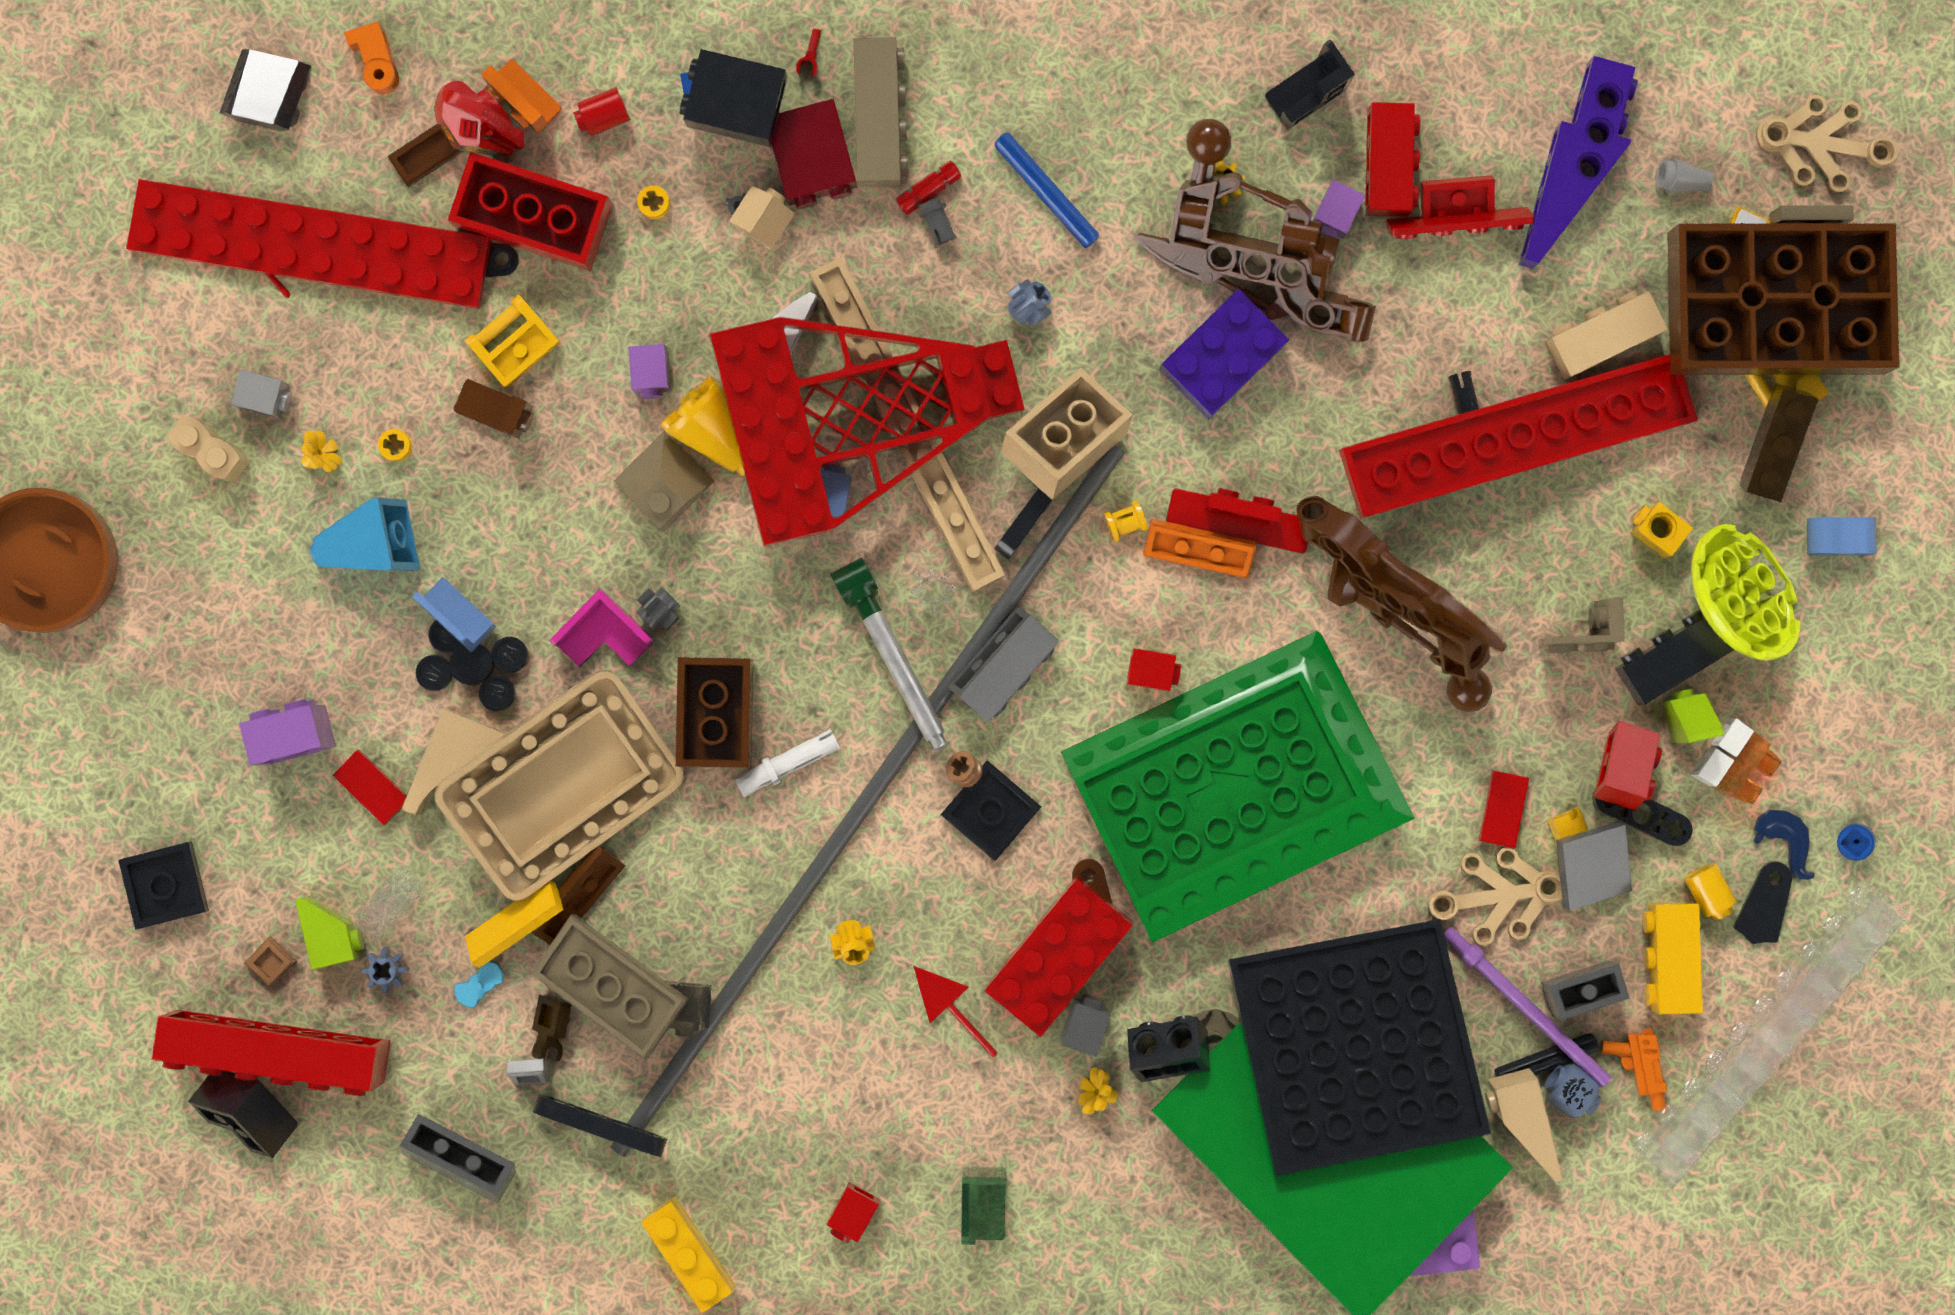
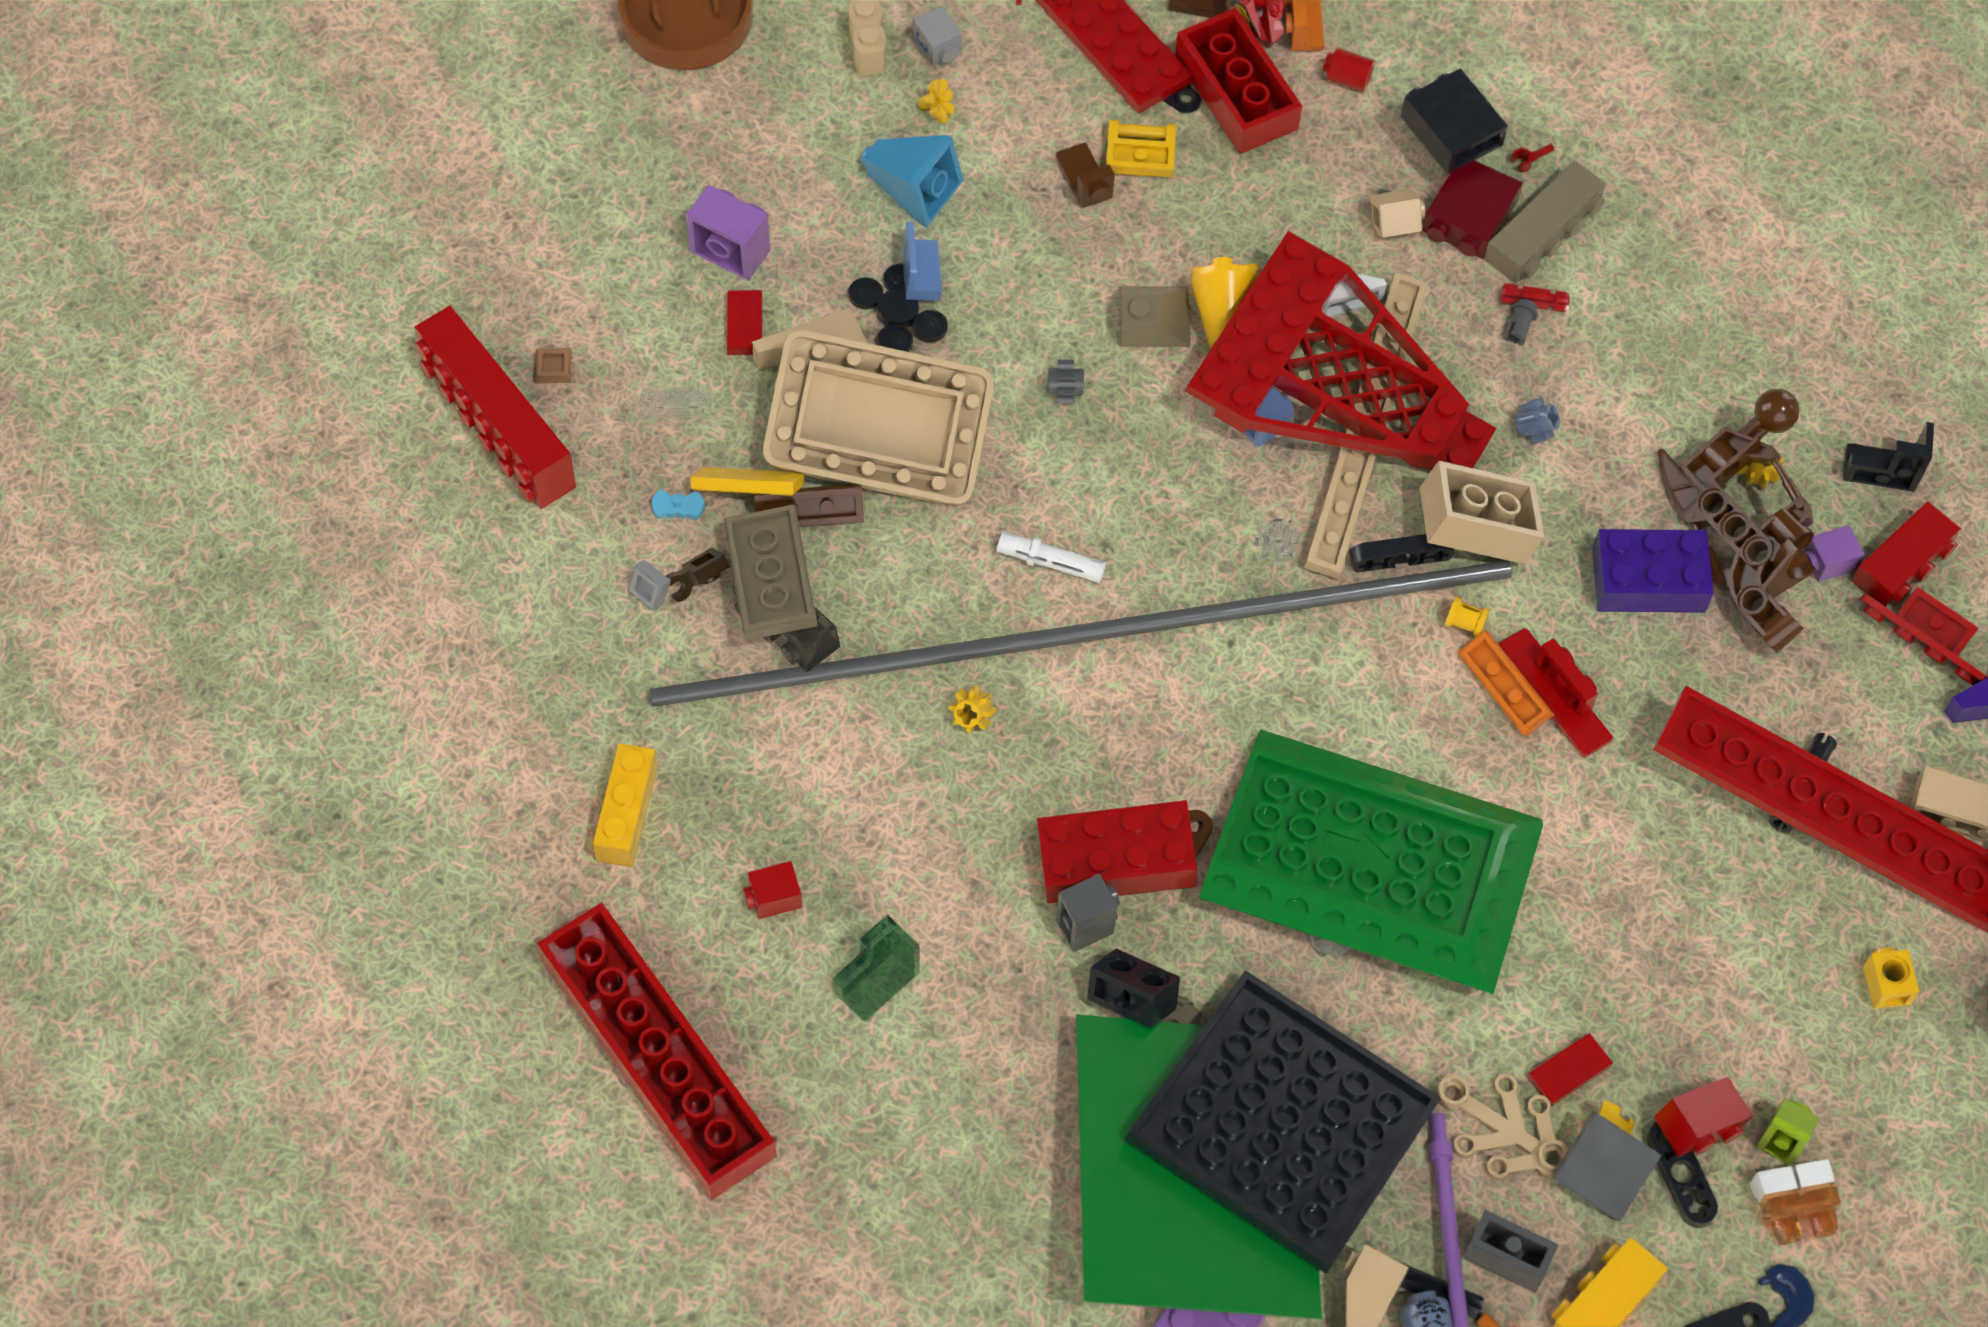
camera: 40 degrees right, 25 degrees down
(163, 885) = (539, 256): black plate -> none
(246, 1110) = (433, 432): black panel -> none
(327, 934) = (610, 380): lime slope -> none
(395, 970) = (625, 443): sand blue gear -> none
(401, 436) = (992, 131): yellow bush -> none
(458, 1158) = (538, 591): dark grey brick -> none
(599, 622) = (1011, 354): dark pink panel -> none
(600, 1125) = (660, 661): black beam -> none
(646, 210) = (1328, 140): yellow bush -> none
(649, 370) = (1218, 236): medium lavender brick -> none
(714, 712) = (1035, 474): reddish brown brick -> none
(859, 591) = (1221, 495): flat silver piece -> none
(940, 994) = (999, 809): red piece -> none
(966, 779) = (1176, 671): medium nougat bush -> none
(991, 811) = (1167, 720): black tile -> none
(1004, 664) = (1279, 627): dark grey brick -> none
(1046, 190) = (1621, 369): blue axle -> none
(1096, 1092) = (1046, 979): yellow plant -> none
(1153, 670) = (1387, 728): red brick -> none
(1388, 588) = (1632, 814): reddish brown piece -> none
(1605, 619) = (1762, 1000): dark tan bracket -> none
(1671, 658) = (1818, 1079): black brick -> none
(1711, 891) = (1686, 1278): yellow brick -> none
(1735, 595) = (1916, 1064): neon yellow brick -> none

